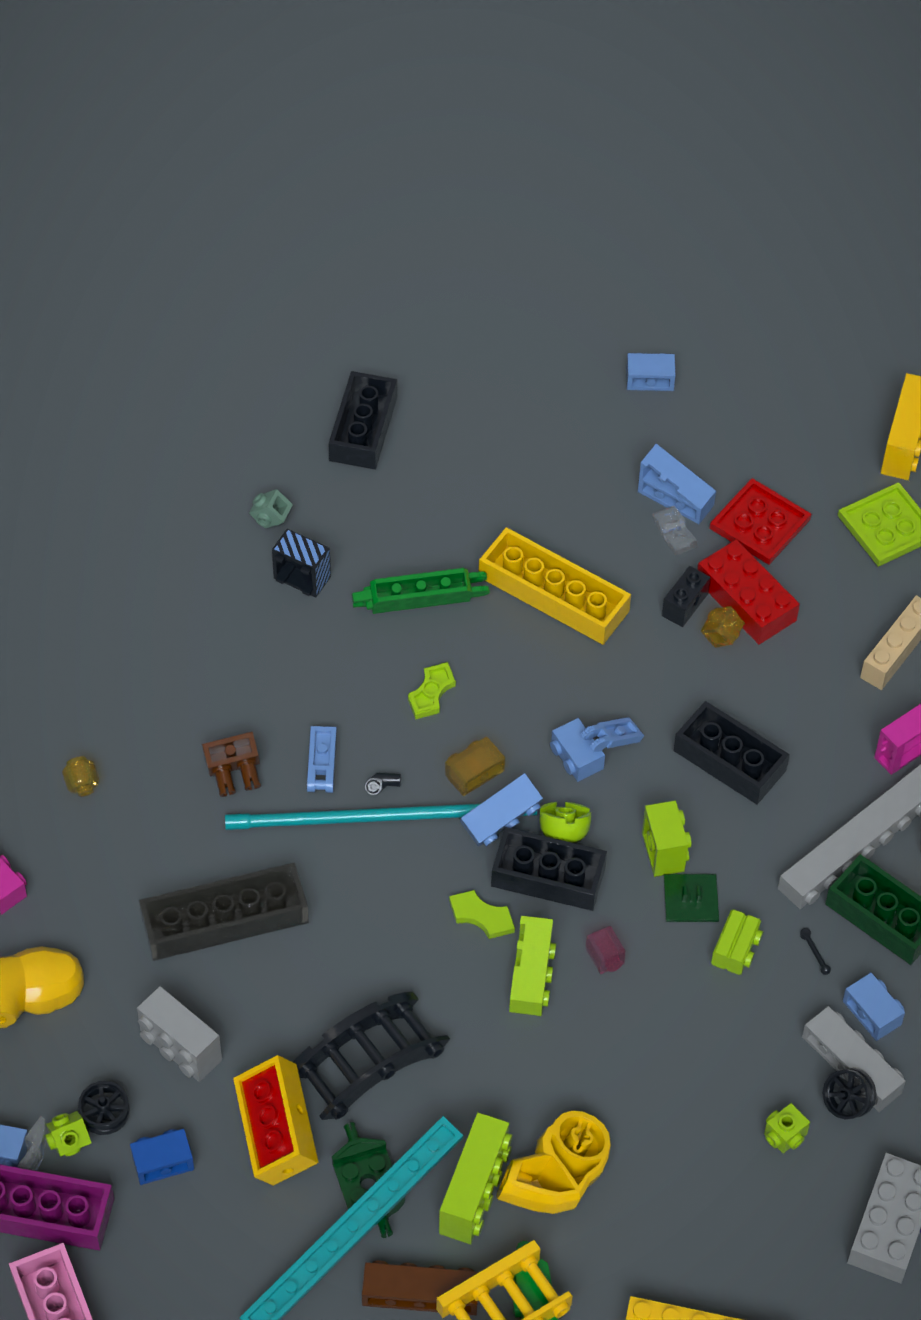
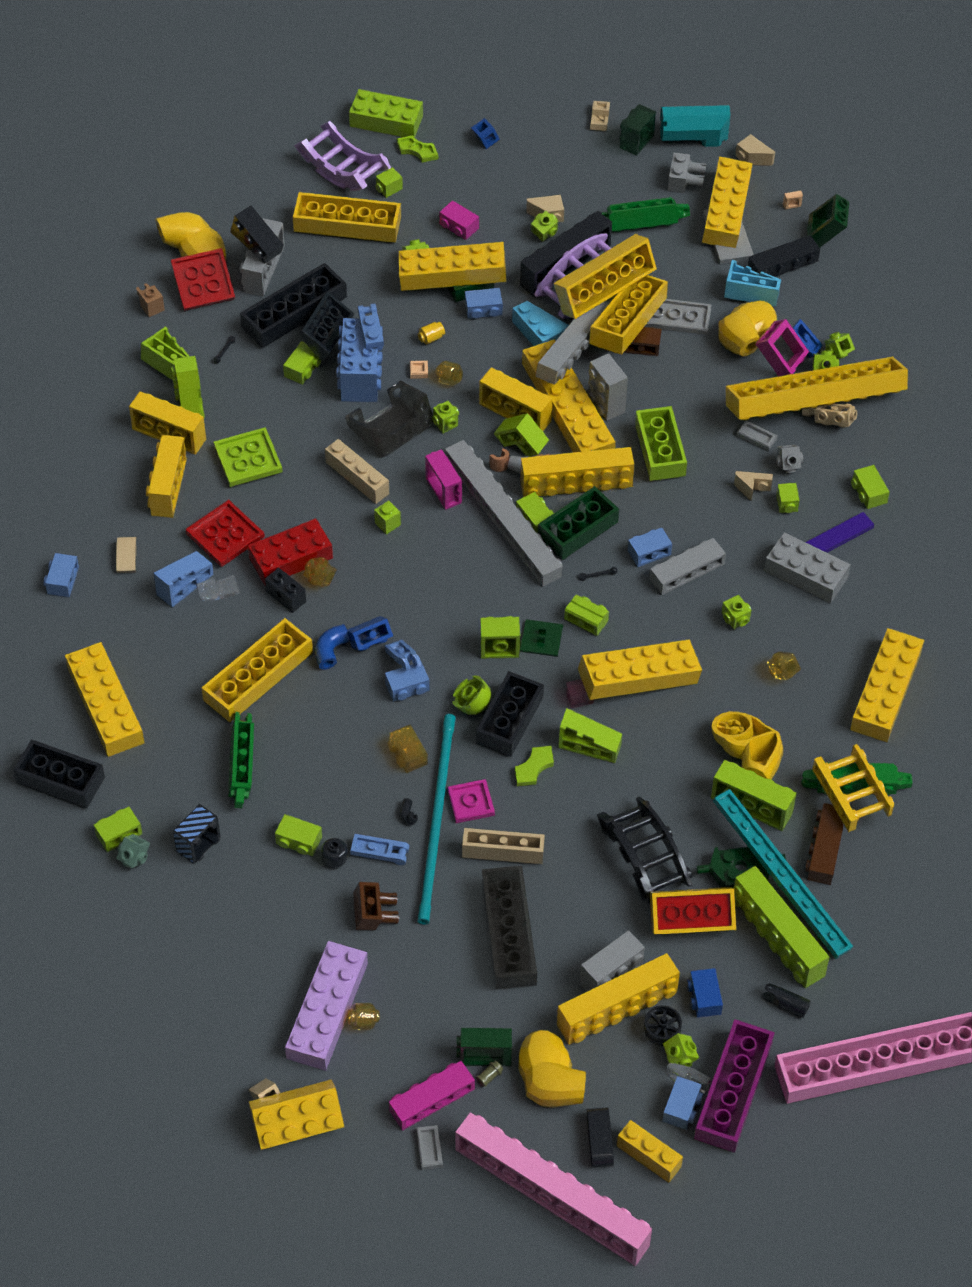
camera: 80 degrees left, 0 degrees up
(24, 927) = (490, 1073): none -> olive pin
(45, 906) = (484, 1046): none -> dark green window
(103, 735) = (326, 1005): none -> lavender brick
(131, 1048) = (618, 999): none -> yellow brick
(164, 1262) = (787, 999): none -> black piece
(267, 1233) = (780, 927): none -> lime brick
(302, 491) = (117, 826): none -> lime brick
(303, 709) = (334, 852): none -> black head
(324, 670) = (298, 835): none -> lime brick
(343, 889) = (503, 846): none -> tan brick
(414, 850) = (470, 801): none -> dark pink tile
(426, 698) = (336, 773): lime tile -> none
(479, 444) = (104, 699): none -> yellow brick
(502, 810) = (456, 733): medium blue brick -> none
(615, 654) = (326, 644): none -> blue cylinder
(639, 694) = (370, 633): none -> blue brick
(651, 1011) = (639, 669): none -> yellow brick
(704, 426) = (126, 555): none -> tan slope
(707, 1199) = (783, 665): none -> clear yellow brick
(731, 752) = (432, 586): black brick -> none
(823, 441) = (166, 476): none -> yellow brick
(833, 687) = (387, 517): none -> lime brick
(849, 1093) = (717, 571): black wheel -> none
(895, 853) = (534, 509): none -> lime brick

